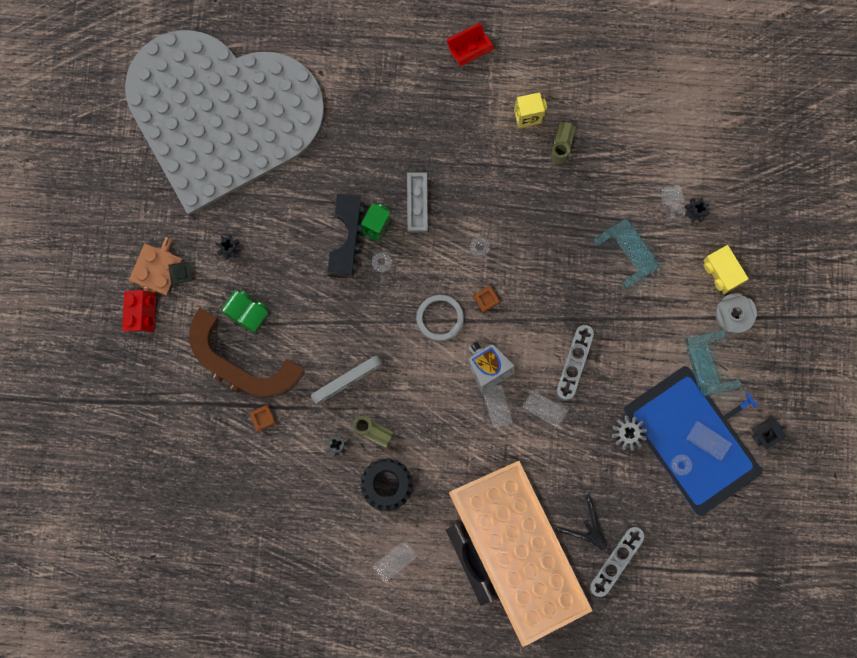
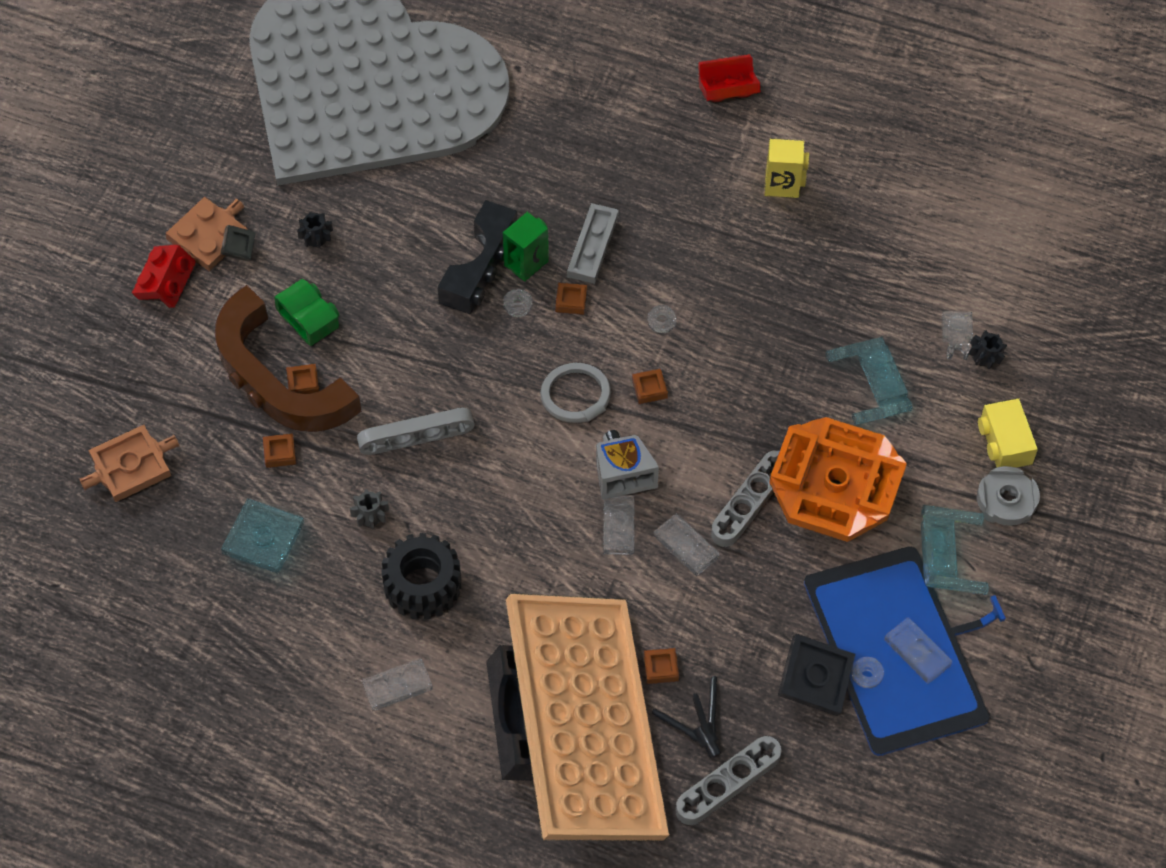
camera: 20 degrees right, 20 degrees down
(169, 458) = (129, 463): none -> nougat plate
(259, 362) = (303, 379): none -> dark orange tile
(274, 484) = (262, 535): none -> clear light blue plate
(375, 432) = (427, 505): olive piece -> none
(415, 247) = (571, 298): none -> dark orange tile
(553, 497) = (661, 666): none -> dark orange tile
(563, 142) = (819, 223): olive piece -> none
(622, 432) = (792, 614): light grey gear -> none
(633, 317) = (842, 452): none -> orange piece
(651, 478) = (816, 674): none -> black hinge
(774, 434) = (1023, 663): black brick -> none

